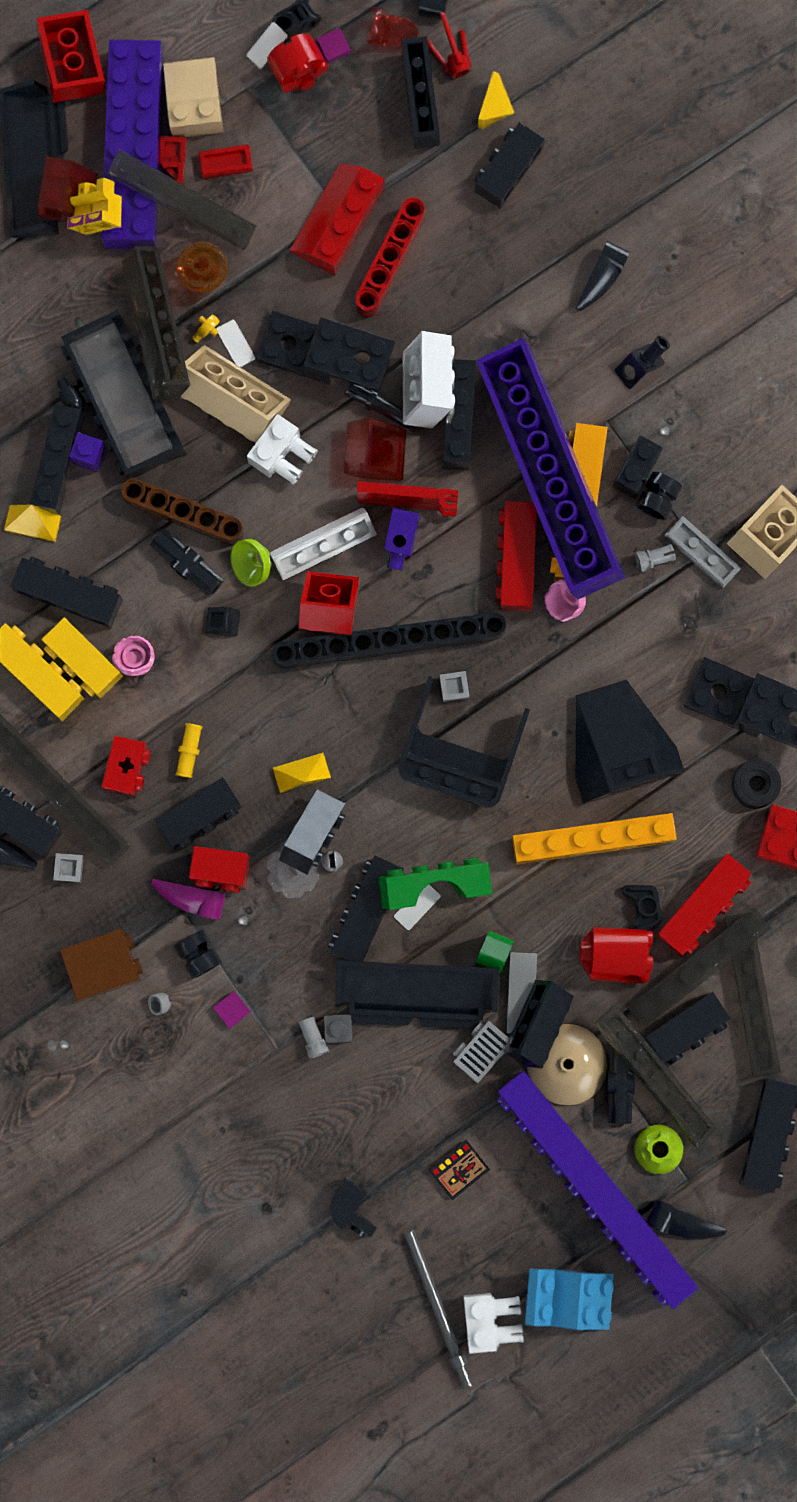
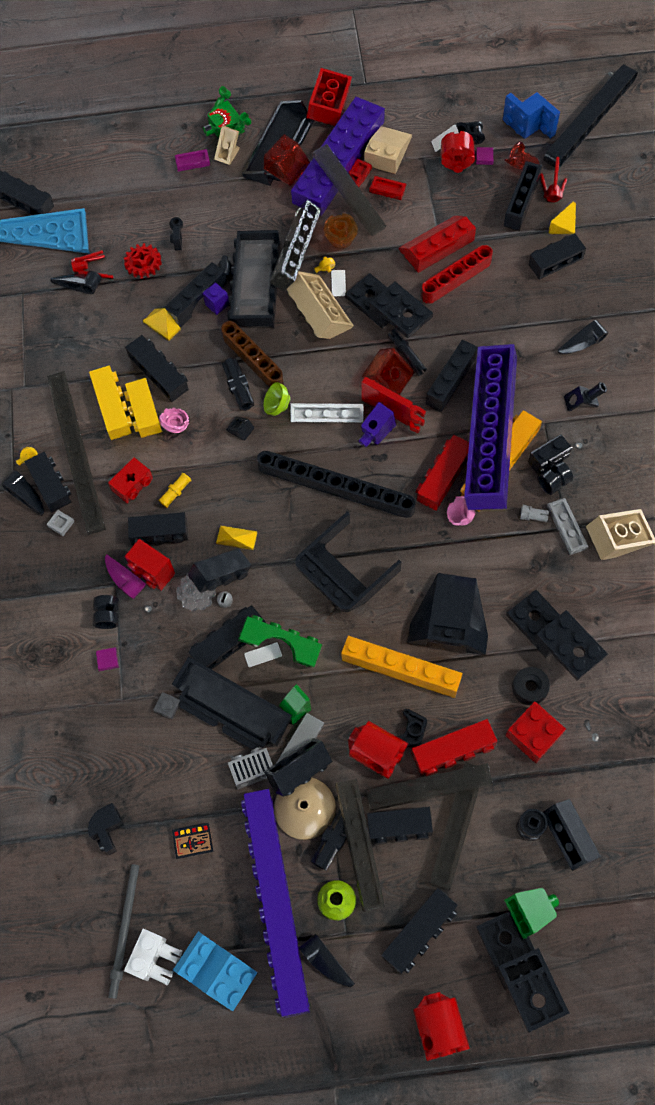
camera: 30 degrees right, 15 degrees down
(96, 208) = (296, 171): yellow hips -> none
(101, 964) = (43, 589): reddish brown brick -> none
(155, 999) = (64, 631): light grey hinge -> none
(273, 447) = (328, 343): white brick -> none
(315, 1044) = (146, 707): light grey pin -> none
(329, 603) = (309, 442): red brick -> none
(427, 379) = (441, 344): white brick -> none
(454, 686) = (361, 530): light grey plate -> none

